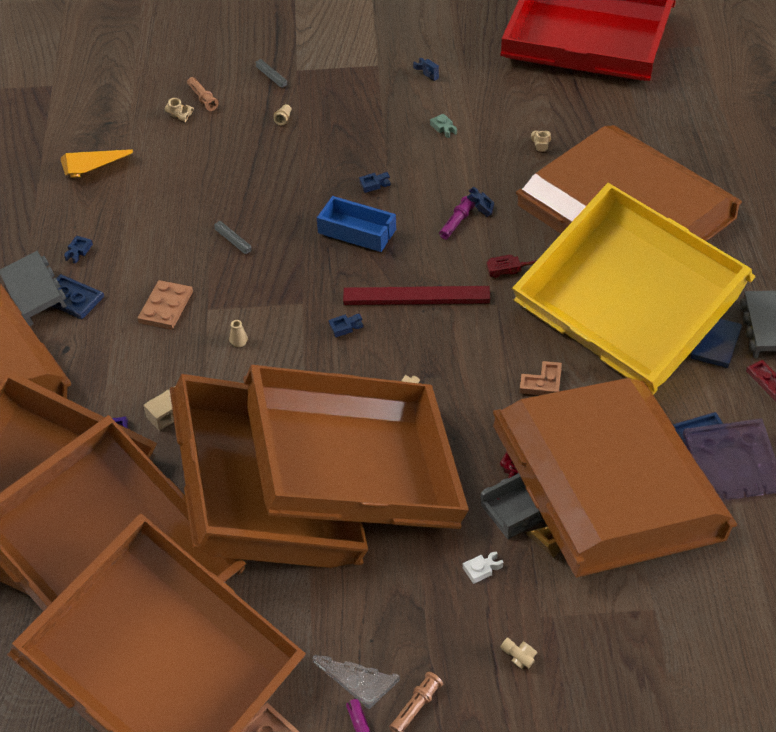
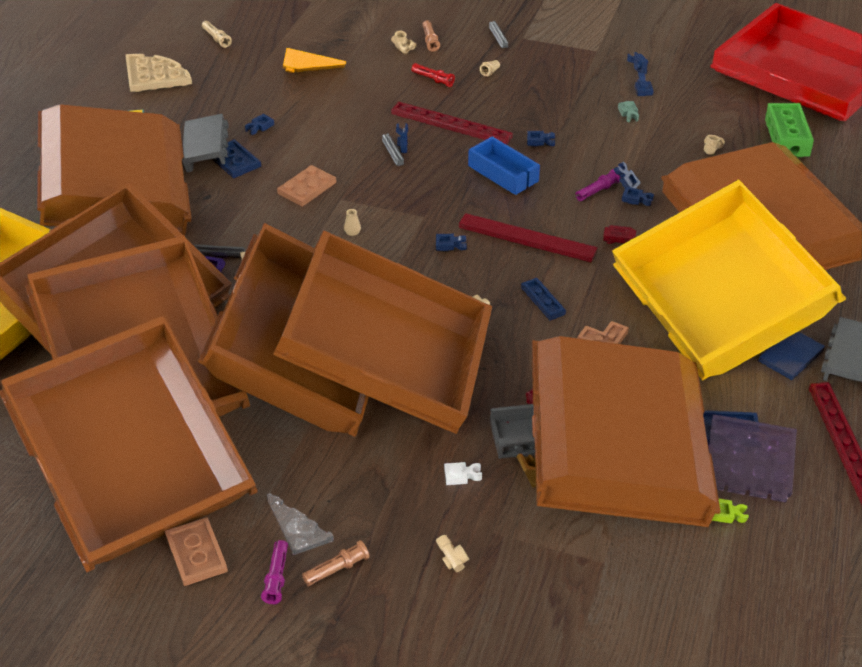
camera: 20 degrees right, 5 degrees down
(118, 407) = (225, 251): none -> dark grey axle
(237, 138) = (438, 76): none -> red pin
(239, 224) = (403, 140): none -> dark blue plate
(275, 189) = (450, 122): none -> dark red tile
(444, 95) = (643, 87): none -> dark blue plate
(465, 357) = (543, 299): none -> dark blue tile
(497, 219) = (634, 196): none -> dark blue plate
(605, 103) = (789, 127): none -> bright green brick
(742, 519) = (730, 512): none -> lime plate

